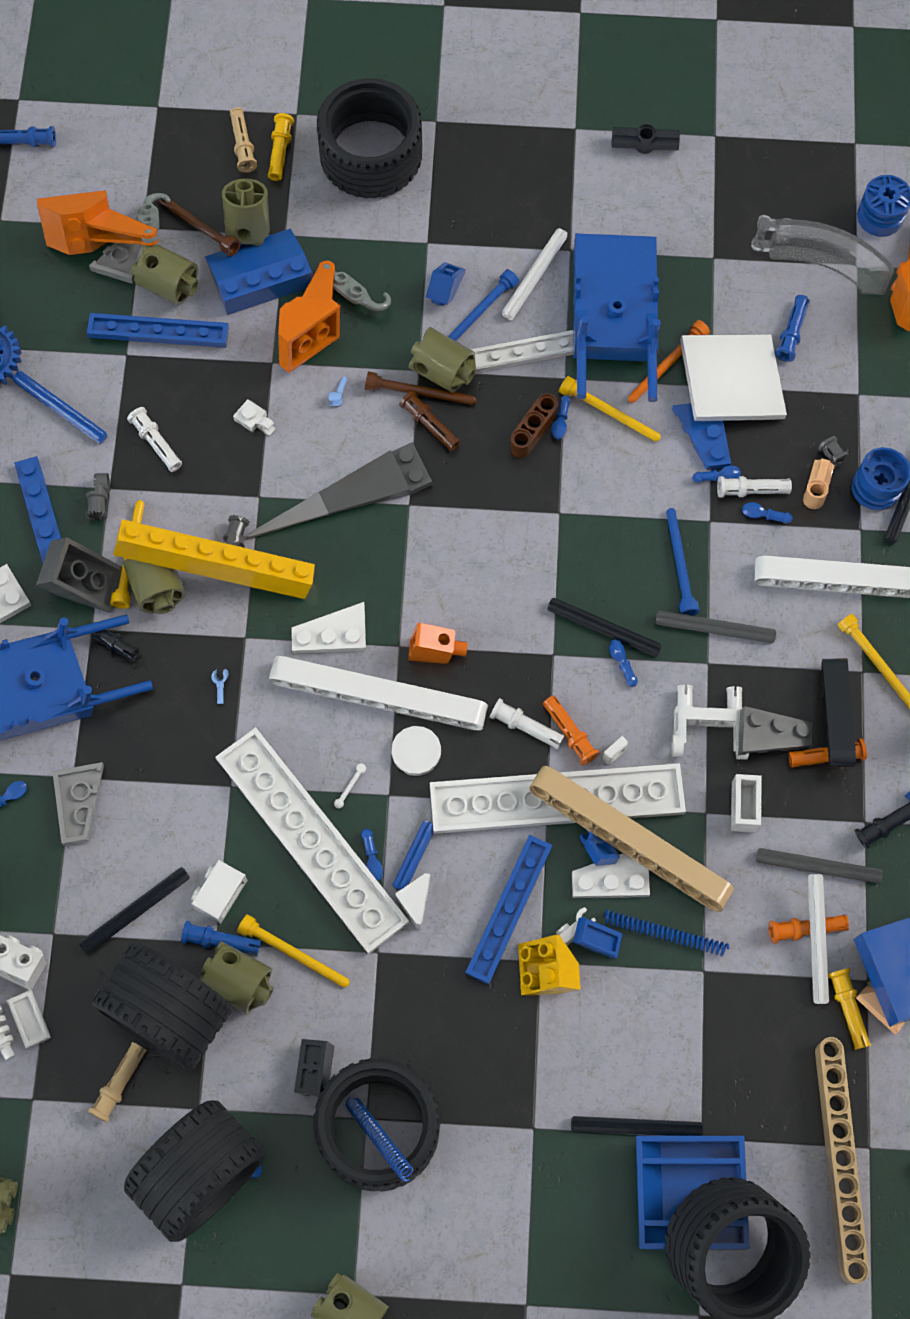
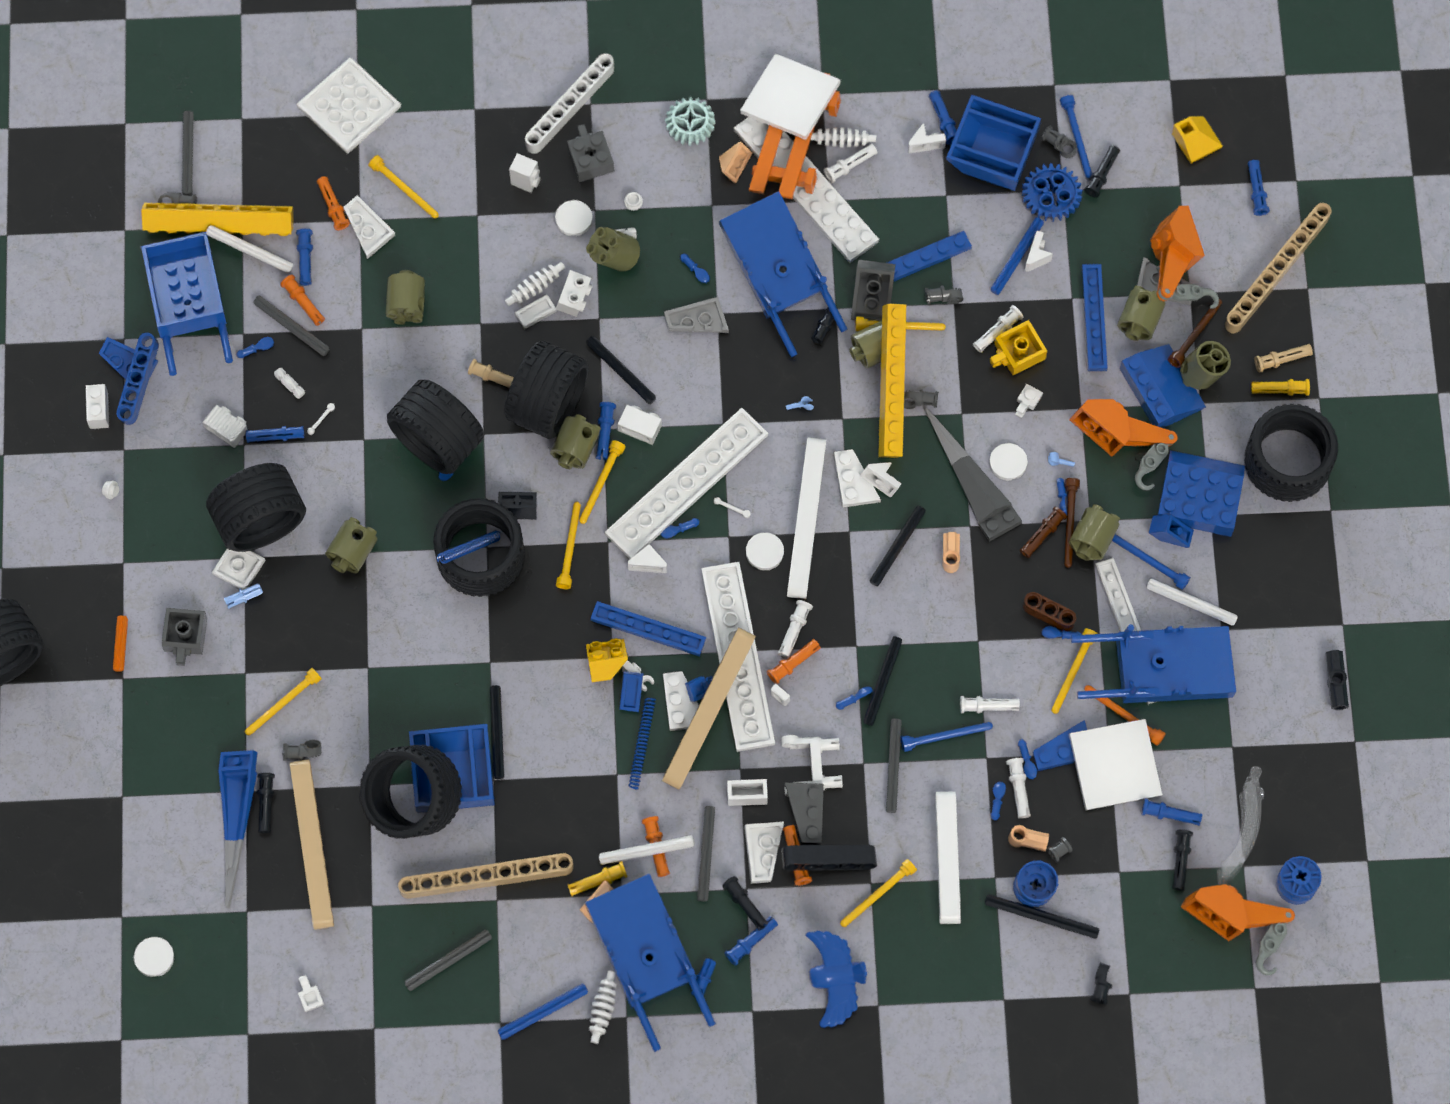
camera: 85 degrees right, 0 degrees up
(60, 384) = (1037, 256): none -> white slope
(119, 119) = (1272, 273): none -> tan beam
(187, 415) = (1029, 353): none -> yellow hinge
(332, 449) = (1008, 461): none -> white tile
(339, 596) = (877, 476): none -> white slope
(382, 395) = (1061, 494): none -> blue piece
(400, 244) = (1202, 492): none -> blue slope
(413, 856) = (681, 557): blue axle -> none
(427, 589) = (897, 546): none -> black axle
(428, 1014) = (564, 580): none -> yellow piece
(434, 644) = (849, 547): orange torso -> none
(442, 527) = (951, 550): none -> light nougat piece
(645, 518) = (979, 704): none -> white pin
(817, 796) = (762, 849): none -> white wing
(837, 323) = (1182, 851): none -> black pin

